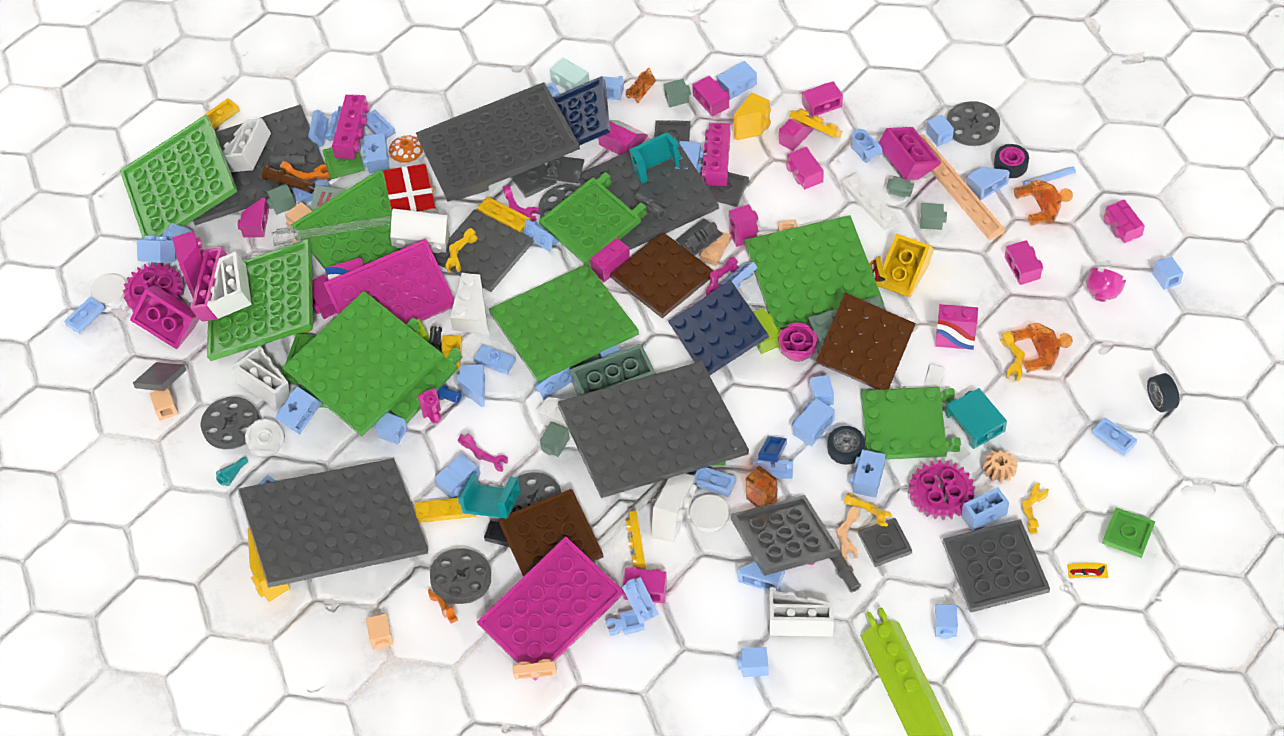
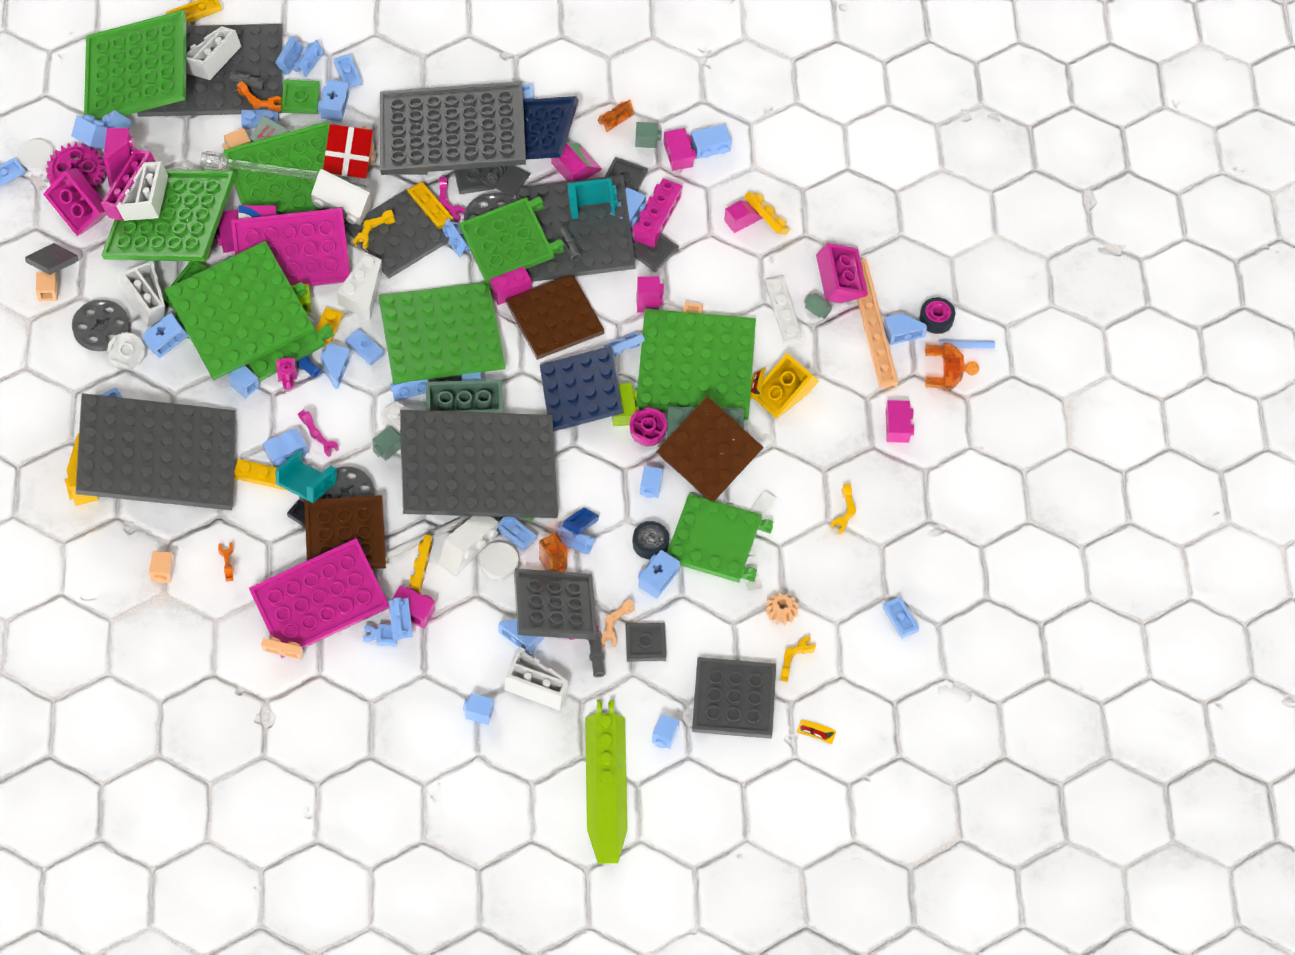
camera: 10 degrees right, 5 degrees up
(227, 474) = (80, 374): teal cone -> none
(254, 219) = (194, 130): dark pink slope -> none
(280, 177) = (234, 96): reddish brown pin -> none
(280, 199) = (226, 118): sand green brick -> none
(350, 126) = (319, 65): dark pink brick -> none
(405, 149) = (362, 109): orange dish -> none
(435, 337) = (314, 312): black pin -> none
(461, 583) = (255, 534): dark grey wedge -> none
(568, 74) = (550, 81): light aqua brick -> none
(614, 87) = (588, 108): light blue brick -> none
(699, 236) = (604, 291): dark grey hinge -> none
(715, 251) = (616, 306): light nougat plate -> none
(731, 265) = (622, 330): dark pink piece -> none
(752, 117) = (705, 186): yellow slope -> none
(805, 168) = (735, 254): dark pink brick -> none
(813, 421) = (630, 508): light blue brick -> none
(822, 99) = (784, 189): dark pink brick -> none
(853, 500) = (634, 594): yellow piece -> none
(865, 145) = (803, 254): light blue piece -> none
(924, 494) = (699, 610): dark pink gear -> none
(932, 216) = (834, 345): sand green brick -> none
(939, 130) = (882, 261): light blue brick -> none
(956, 326) = (800, 463): dark pink panel -> none
(977, 417) = (781, 556): teal panel -> none
(978, 127) = (921, 270): dark grey wedge -> none
(985, 509) = (747, 643): light blue brick -> none
(1045, 343) = (880, 508): clear orange connector -> none
(1105, 284) = (962, 470): dark pink cylinder -> none
(1123, 221) = (1014, 413): dark pink brick -> none
(1128, 532) = (868, 709): bright green plate -> none
(1163, 392) = (963, 592): black wheel -> none
(1167, 272) = (1029, 478): light blue brick -> none

